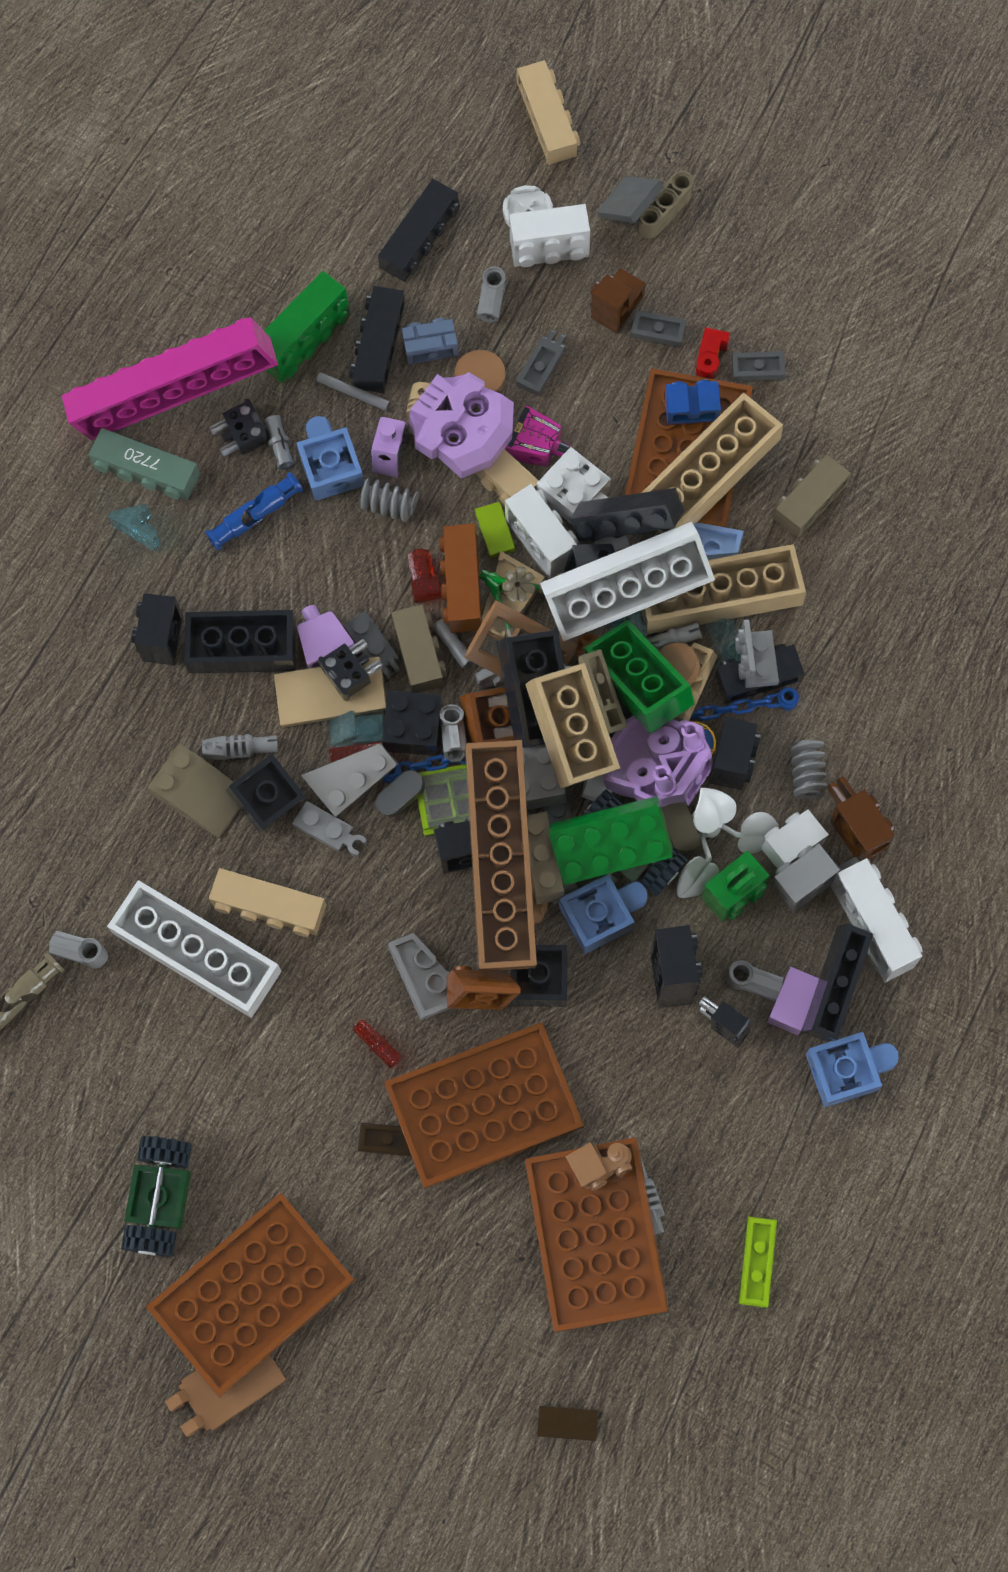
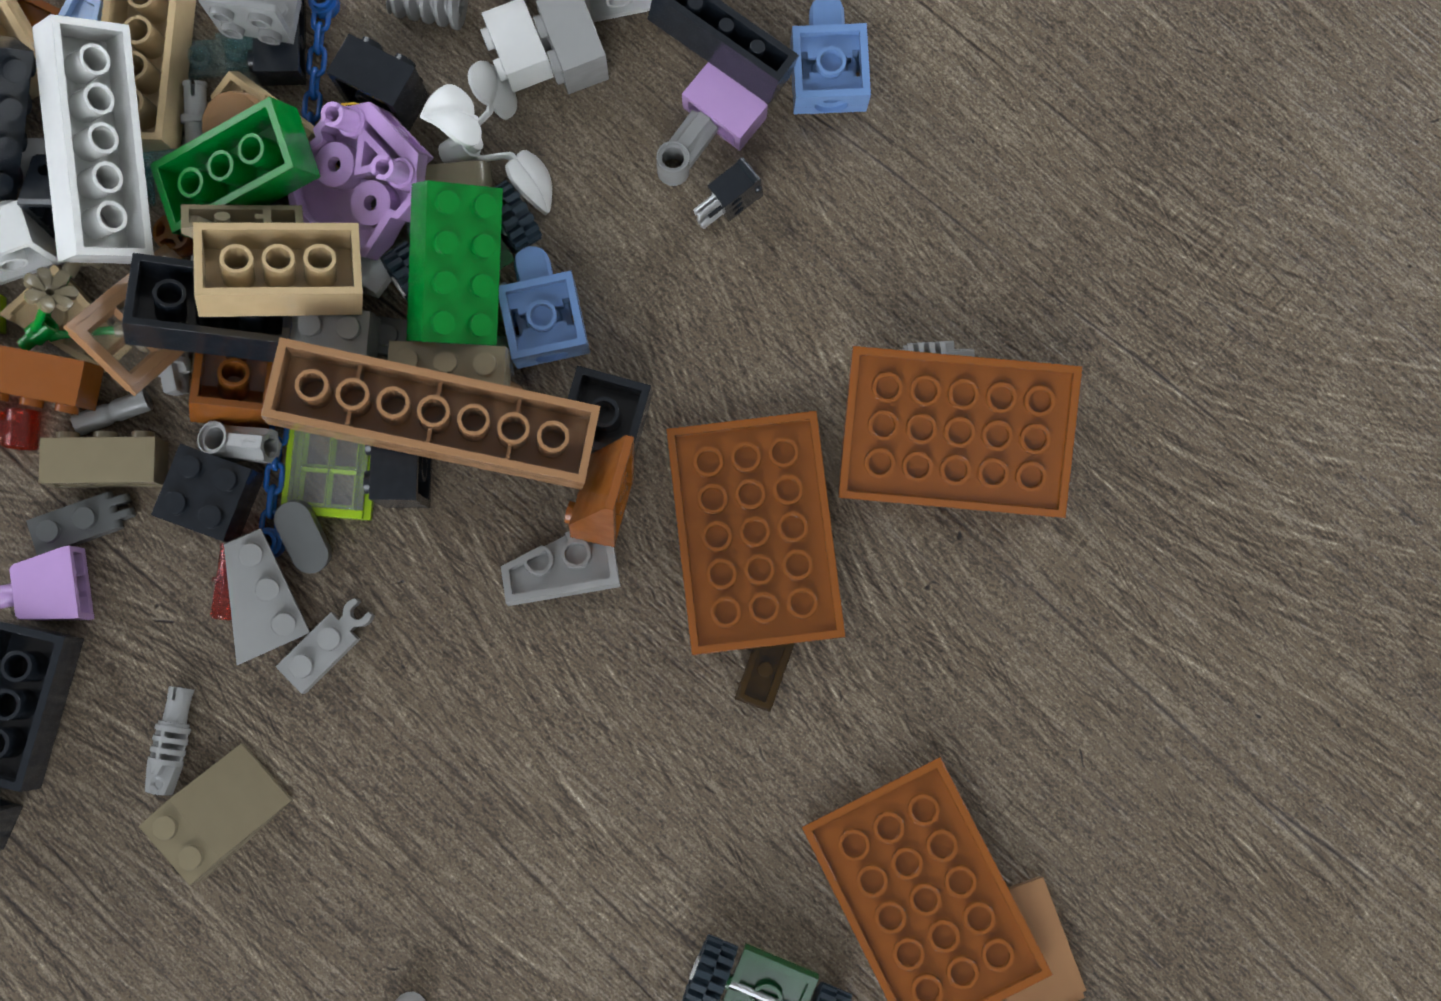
camera: 80 degrees left, 10 degrees up
(194, 948) = (438, 871): white brick -> none
(265, 793) = (247, 720): black brick -> none
(267, 902) = (401, 755): tan brick -> none
(310, 697) = (129, 597): tan tile -> none
(342, 677) = (103, 577): black piece -> none
(351, 728) = (190, 583): clear light blue slope -> none
(377, 1043) = (636, 651): clear red axle -> none
(567, 1423) = (1177, 531): dark brown tile -> none
(593, 1169) = (881, 409): medium nougat brick -> none
(674, 966) = (647, 228): black brick -> none
(735, 887) = (560, 130): green brick -> none
(757, 1262) = (1036, 245): lime tile -> none

